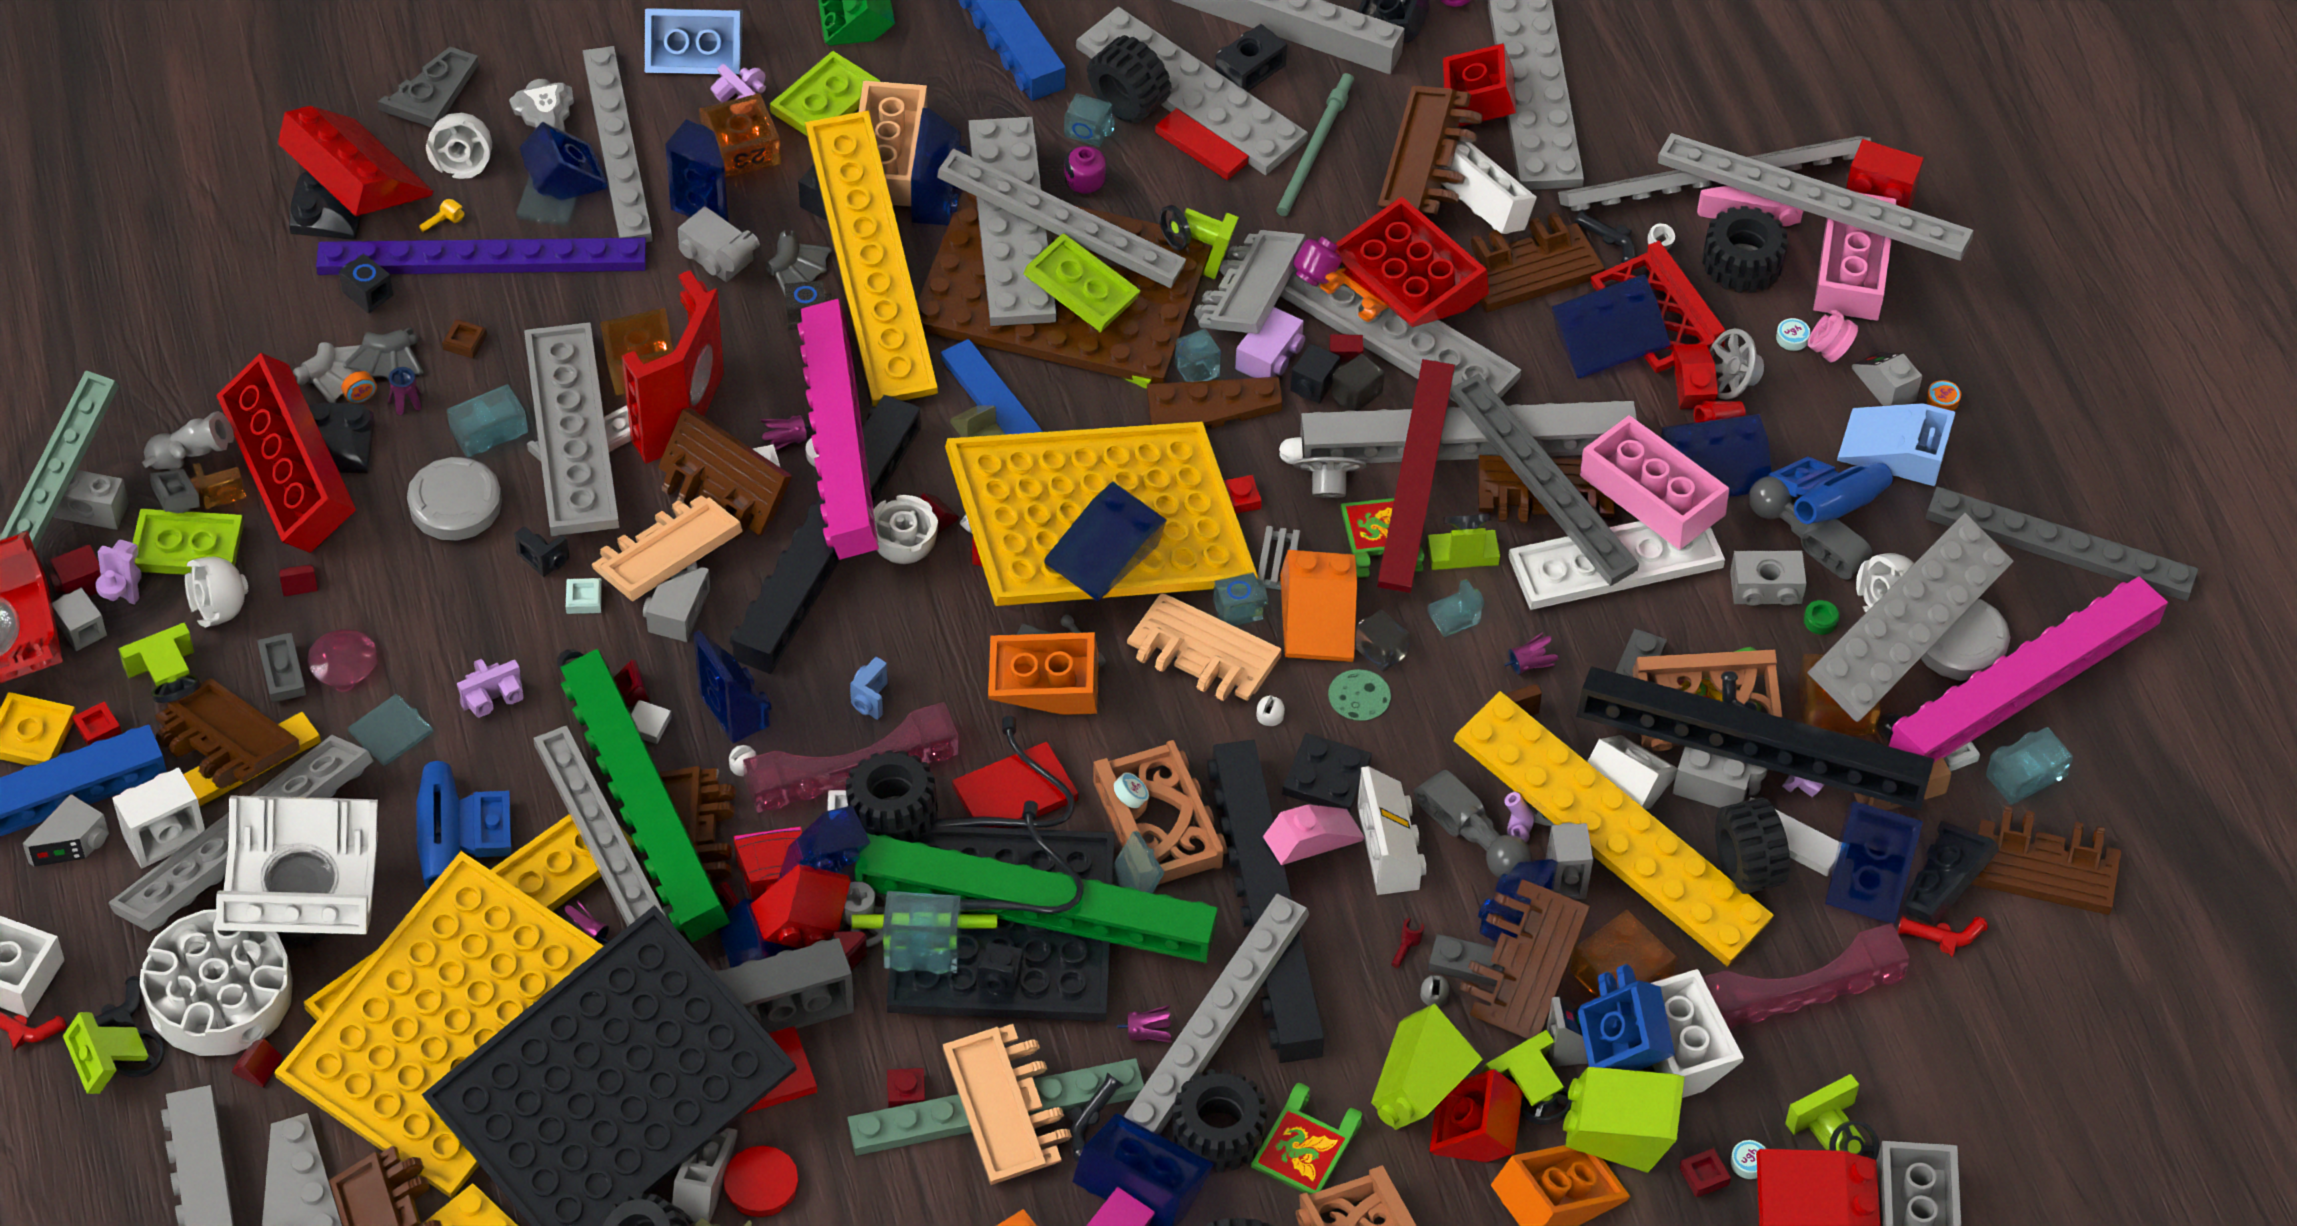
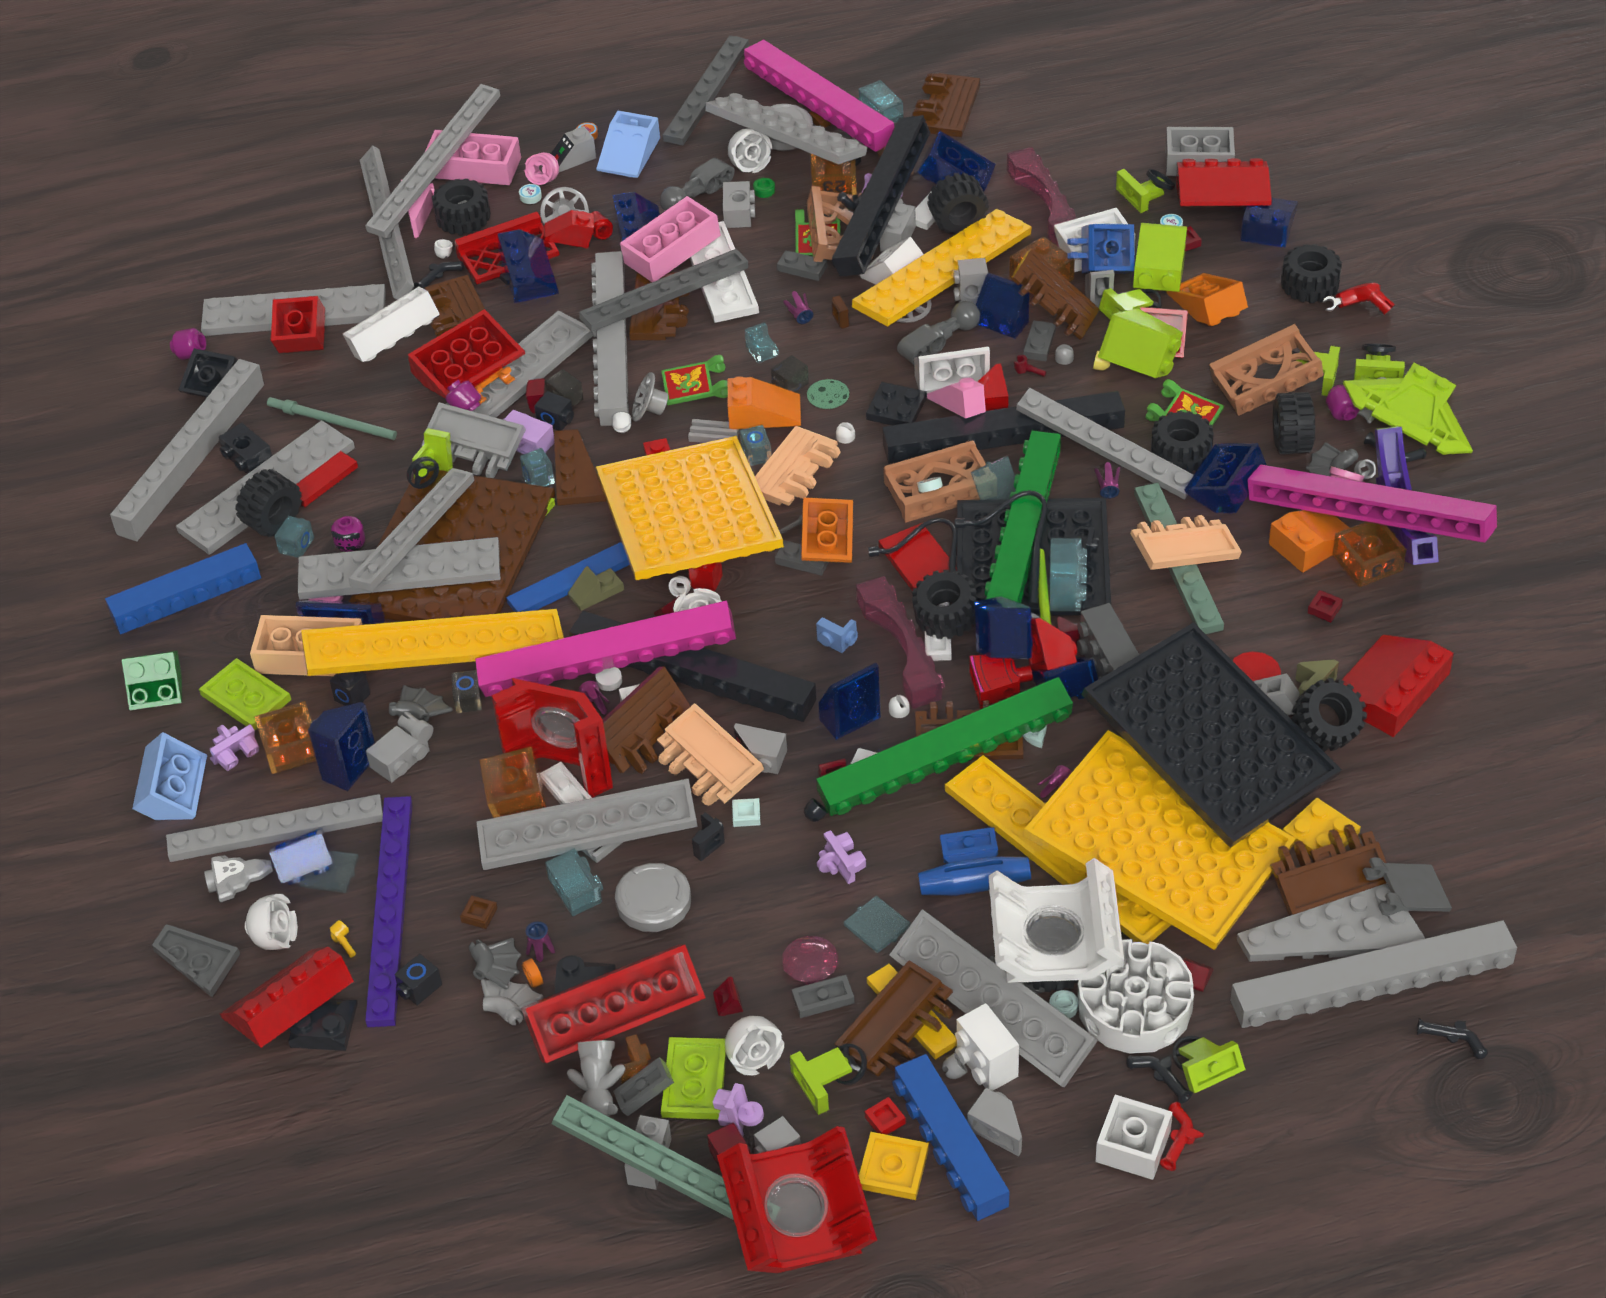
camera: 85 degrees left, 5 degrees down
(596, 824) = (989, 765): light grey plate -> none
(905, 1086) = (1169, 603): dark red plate -> none
(1081, 282) = (474, 518): lime plate -> none
(1090, 1113) = (1182, 507): black piece -> none
(1106, 541) = (726, 488): clear blue slope -> none
(1344, 887) = (995, 389): none -> red slope
(1416, 476) = (657, 351): dark red tile -> none
(1427, 142) = (364, 344): reddish brown hinge -> none
(1466, 546) = (707, 332): lime piece -> none
(1521, 816) = (932, 313): lavender arm -> none
(1830, 493) = (669, 167): blue plate -> none
(1885, 173) = (411, 138): red brick -> none
(1943, 934) = (1005, 144): red piece -> none
(1950, 869) = (963, 132): black wing -> none

